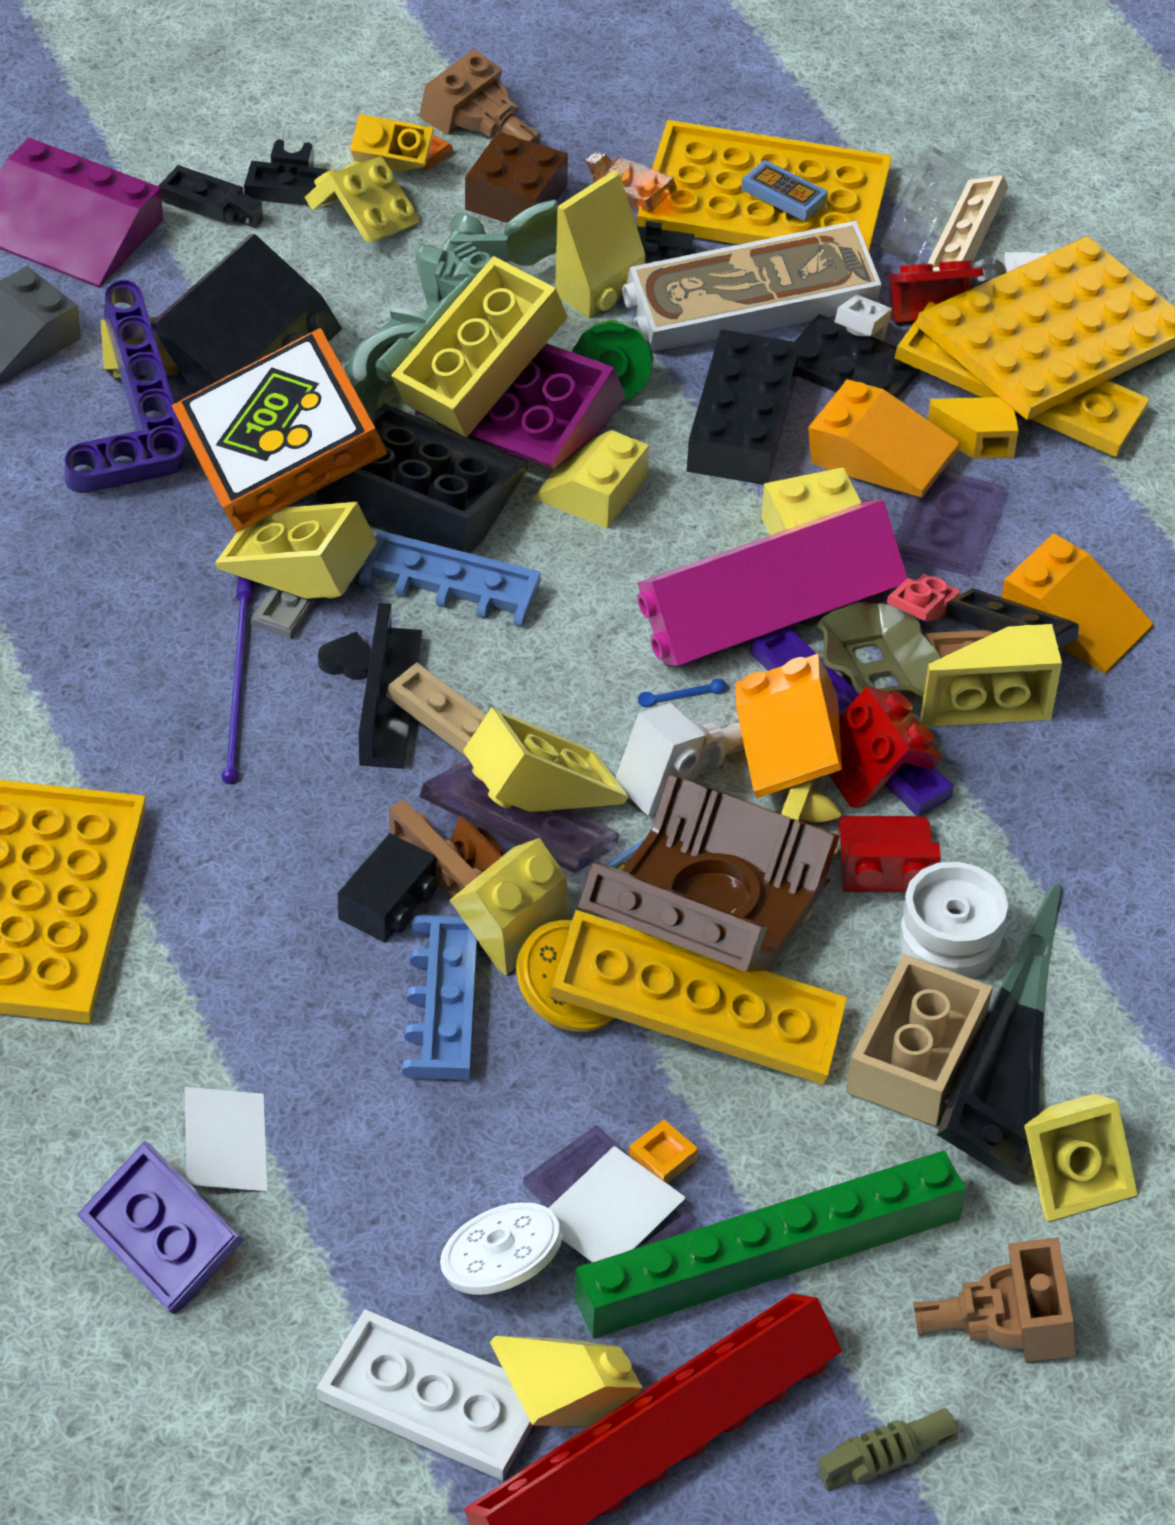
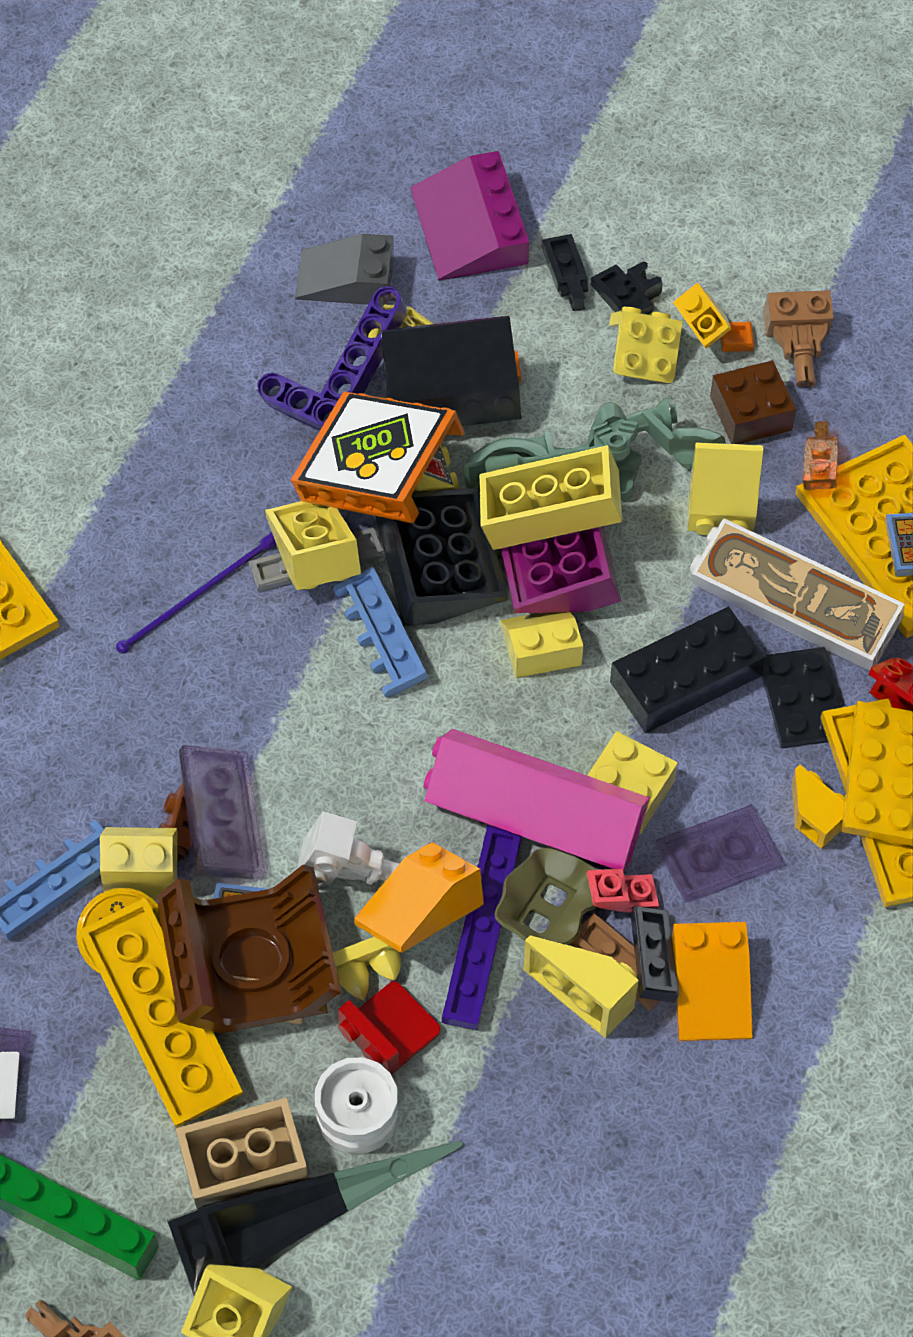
camera: 50 degrees right, 10 degrees up
(345, 656) = (269, 630): black tile -> none
(383, 723) = (257, 670): black fence -> none
(388, 888) = (103, 789): black brick -> none
(416, 829) = (152, 793): medium nougat plate -> none
(436, 706) = (265, 719): tan plate -> none
(538, 768) = (261, 796): light yellow slope -> none
(621, 347) = (644, 571): green tile -> none
(664, 1151) = (38, 1081): light orange plate -> none
(671, 243) = (779, 505): black plate -> none
(717, 686) = (394, 806): blue hinge -> none
(864, 317) = (837, 673): white bracket -> none
(875, 740) = (468, 955): red bracket -> none
(879, 440) = (738, 765): light orange slope -> none

